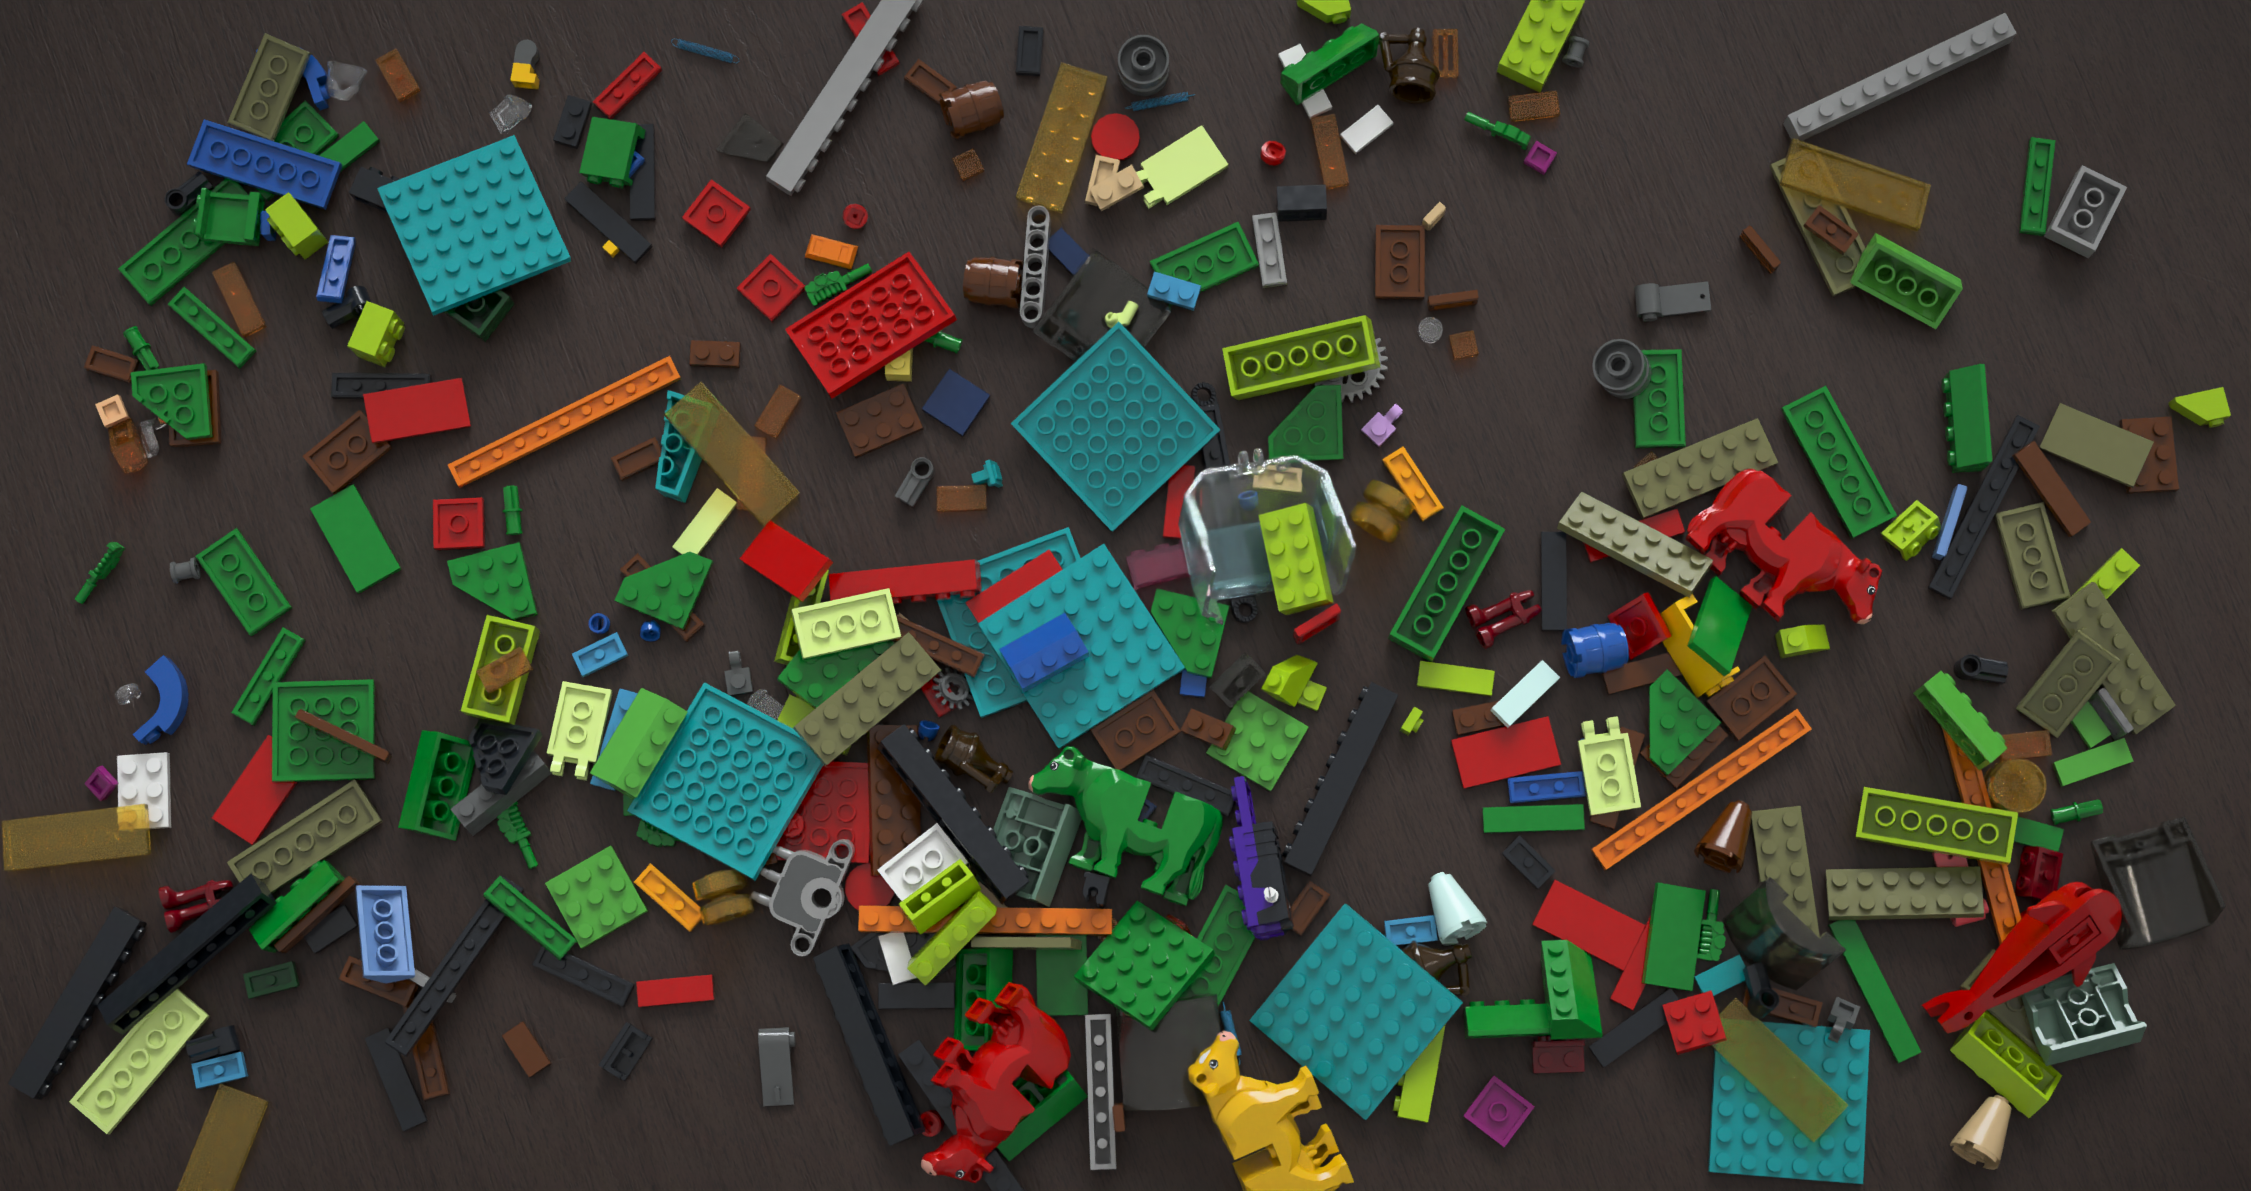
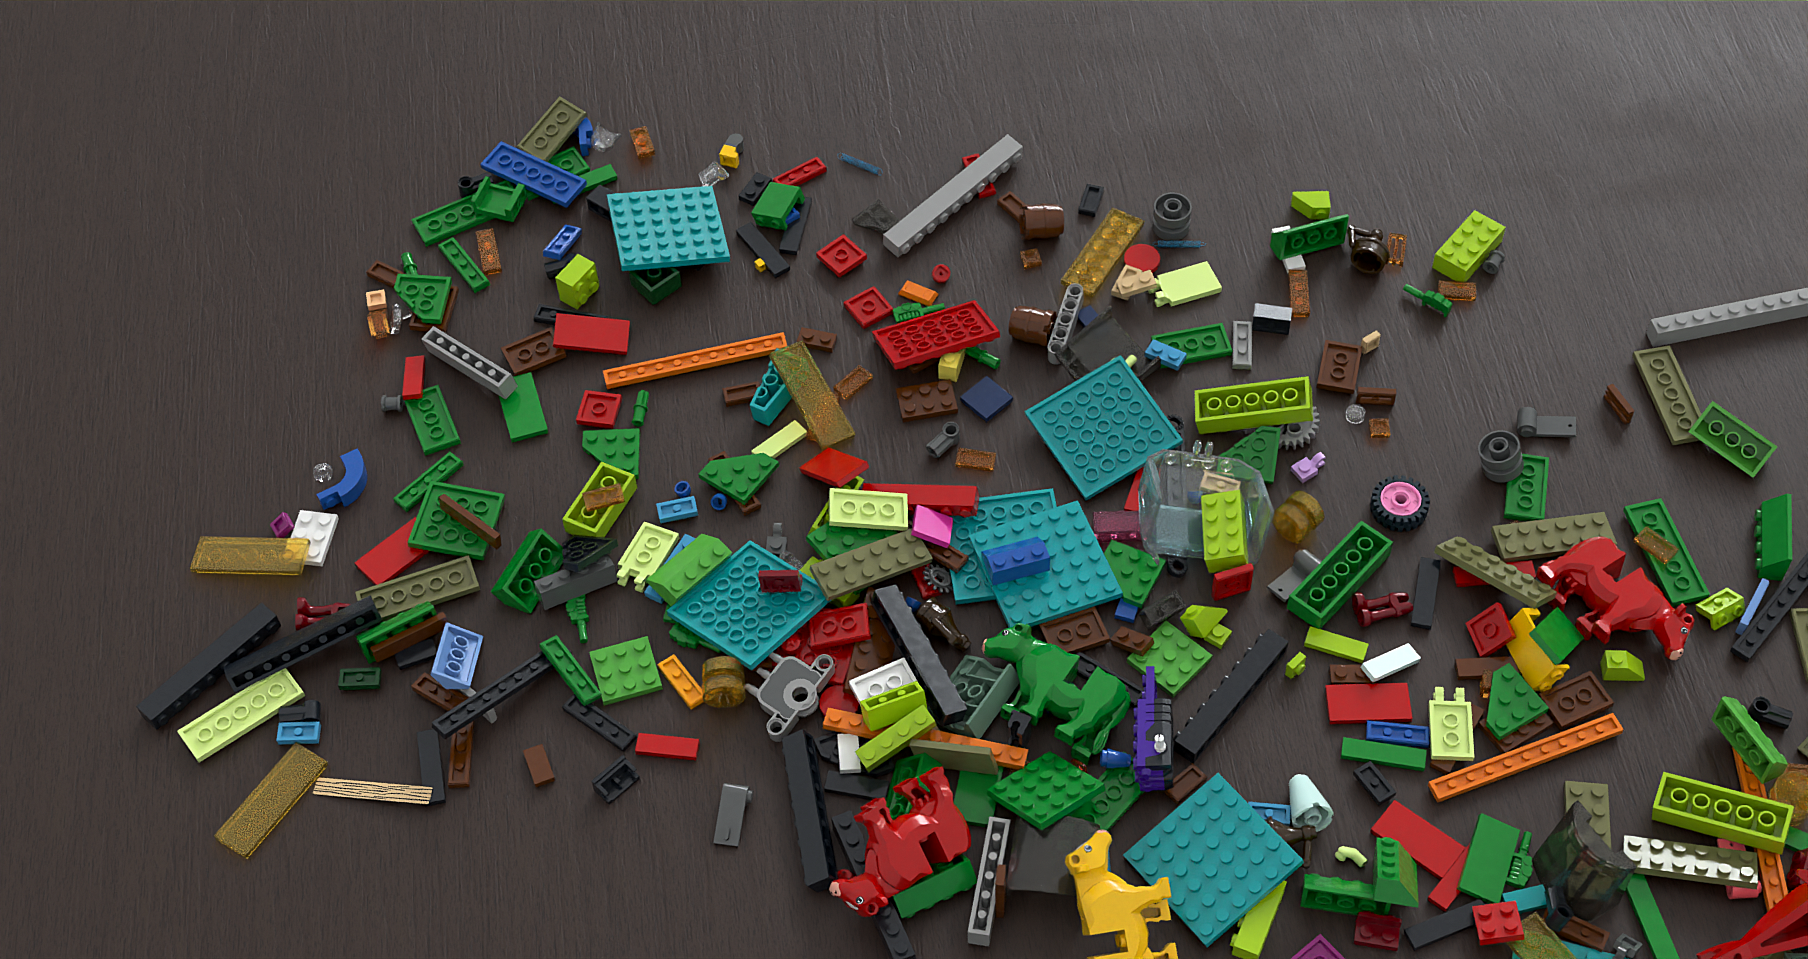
camera: 10 degrees right, 25 degrees down
(107, 564) = (337, 390): green piece -> none
(201, 525) = (413, 377): none -> red tile
(266, 229) = (523, 211): blue tile -> none
(269, 493) = (469, 362): none -> light grey brick
(295, 226) = (542, 210): lime brick -> none
(334, 1126) = (373, 790): none -> tan sticker
(761, 749) = (780, 580): none -> dark red bracket
(847, 790) = (839, 626): none -> red tile
(930, 624) = (932, 526): none -> tile
(990, 475) = (999, 446): teal brick -> none
(1013, 586) = (1001, 516): red tile -> none
(1216, 902) = (1114, 759): none -> blue cone
(1272, 153) = (1256, 286): red tile -> none
(1366, 129) = (1328, 284): white tile -> none
(1392, 592) = (1286, 583): none -> dark grey door
(1412, 483) = (1332, 522): light orange tile -> none
(1499, 476) = (1386, 504): none -> wheel
(1514, 960) = (1352, 853): none -> yellowish green arm
(1540, 157) = (1456, 322): magenta tile -> none
(1594, 649) = (1452, 639): blue piece -> none
(1642, 698) = (1485, 683): none -> clear orange tile
(1727, 838) = (1541, 795): reddish brown cone -> none
(1825, 459) = (1656, 545): none -> clear orange tile
(1831, 230) = (1676, 396): reddish brown plate -> none
(1855, 184) = (1698, 374): clear yellow tile -> none

